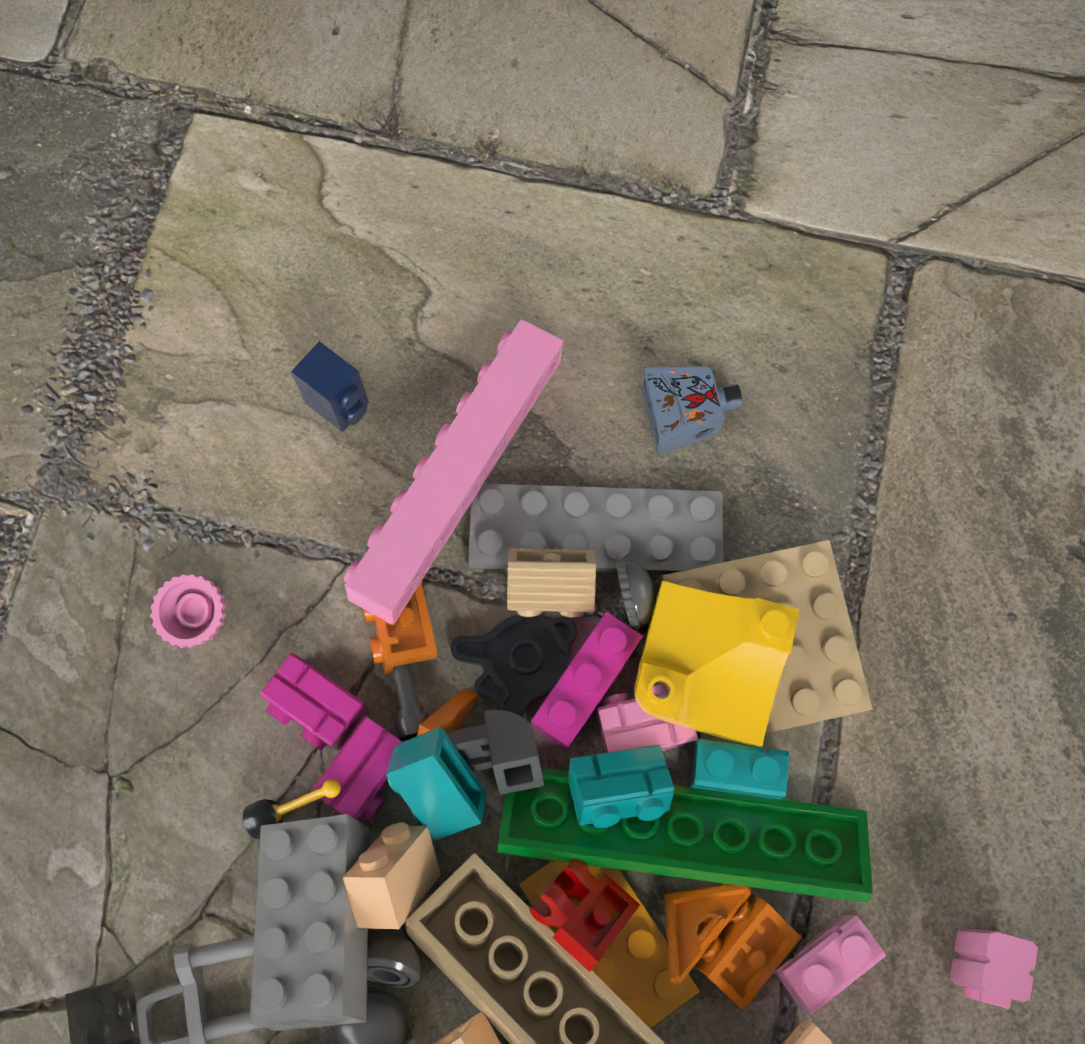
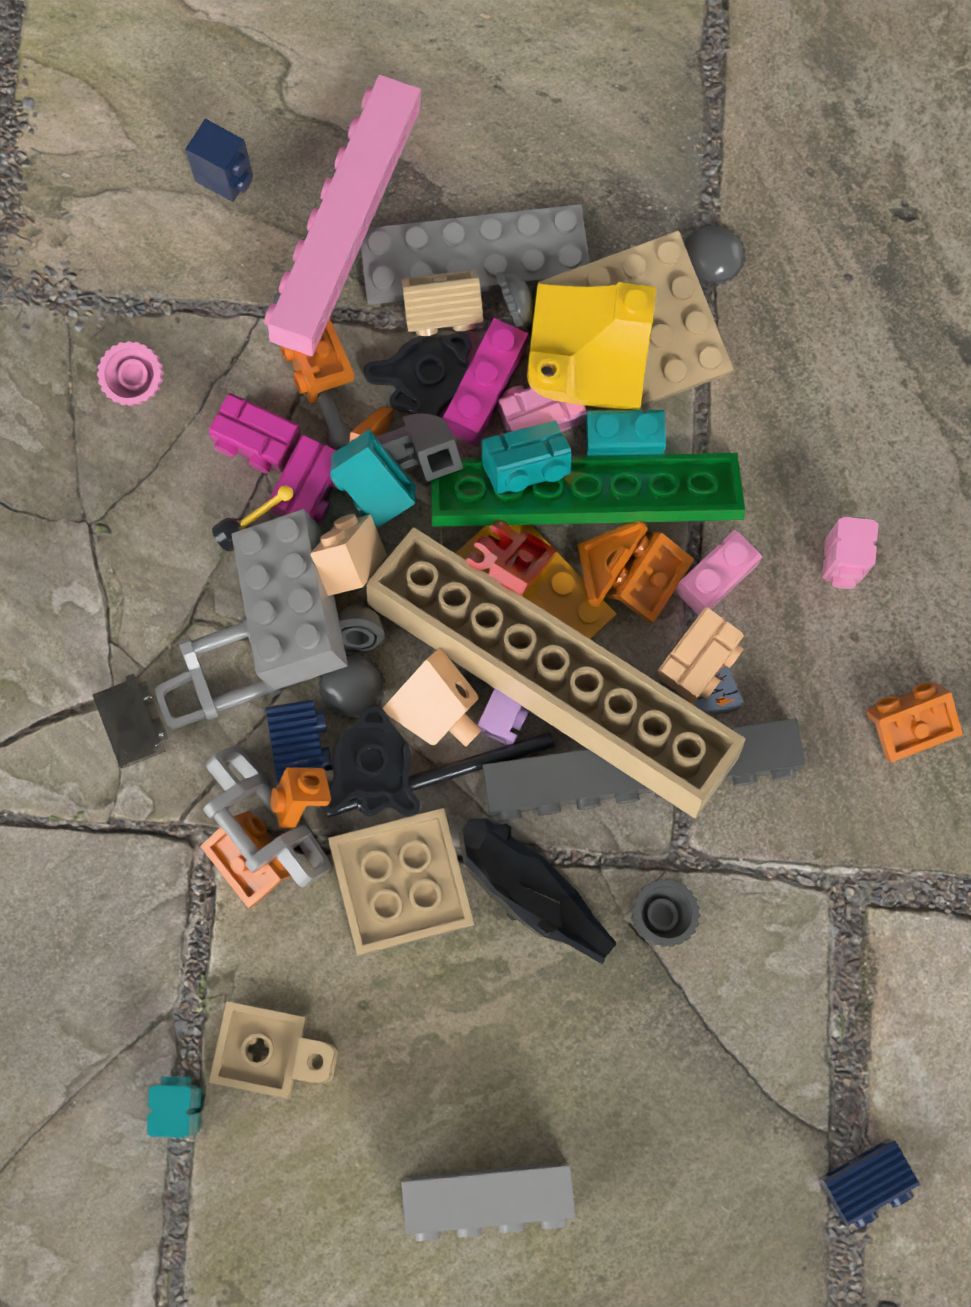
camera: 10 degrees left, 5 degrees up
(685, 405) = (538, 132): sand blue torso -> none
(865, 568) = (715, 254): none -> dark grey hat

